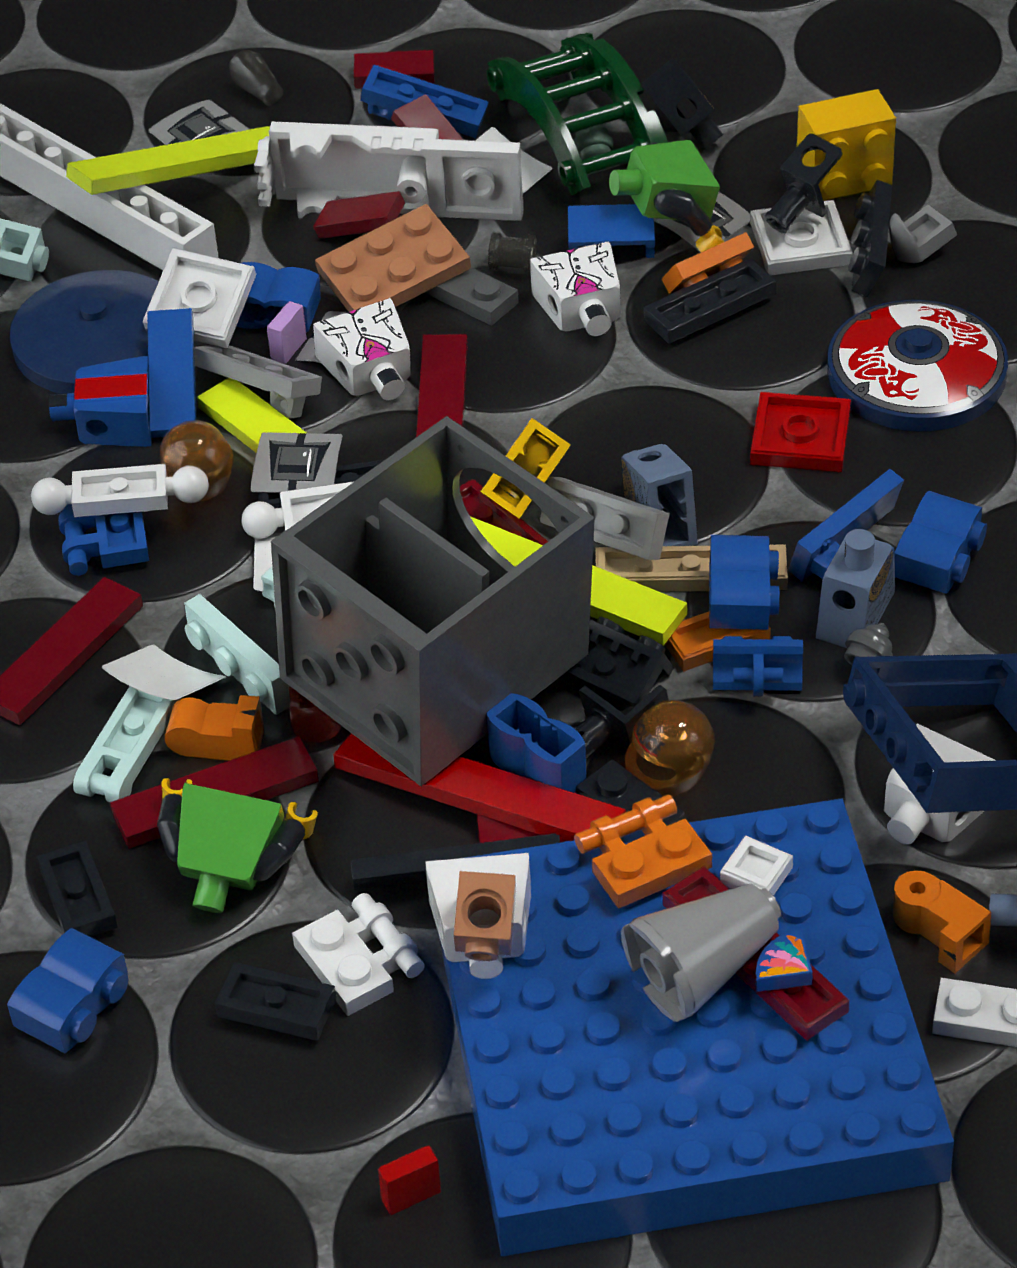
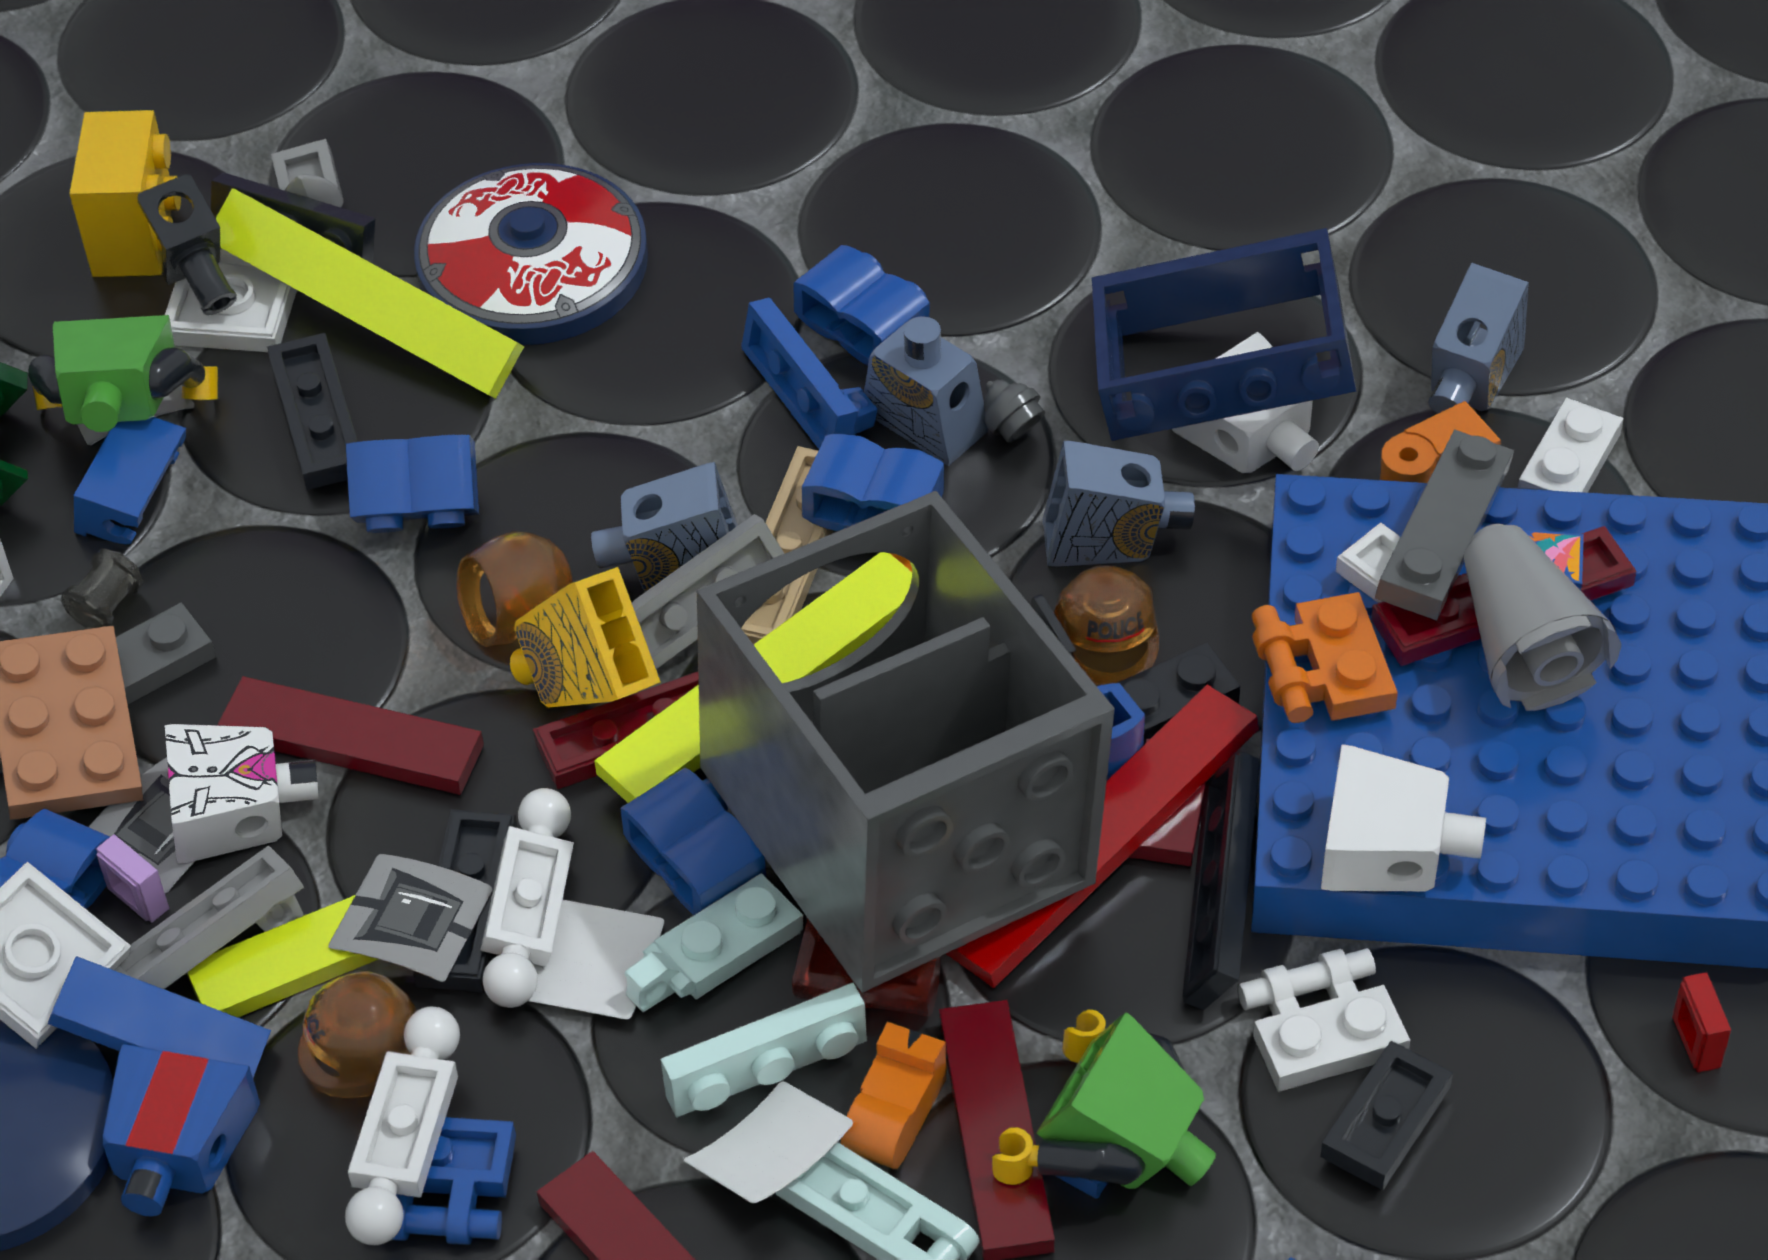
camera: 75 degrees left, 5 degrees up
(481, 892) = (1459, 790): nougat brick -> none
(578, 288) = (225, 533): white torso -> none
(584, 422) = (521, 574): none -> clear orange helmet
(654, 357) = (412, 480): none -> blue brick
(707, 263) = (249, 393): orange plate -> none
(757, 664) = (1002, 509): blue hips -> none
(782, 715) = (1108, 506): none -> sand blue torso
(800, 432) = (596, 388): red tile -> none
(811, 891) = (1443, 524): none -> dark grey plate
(817, 287) = (366, 294): none -> neon yellow tile

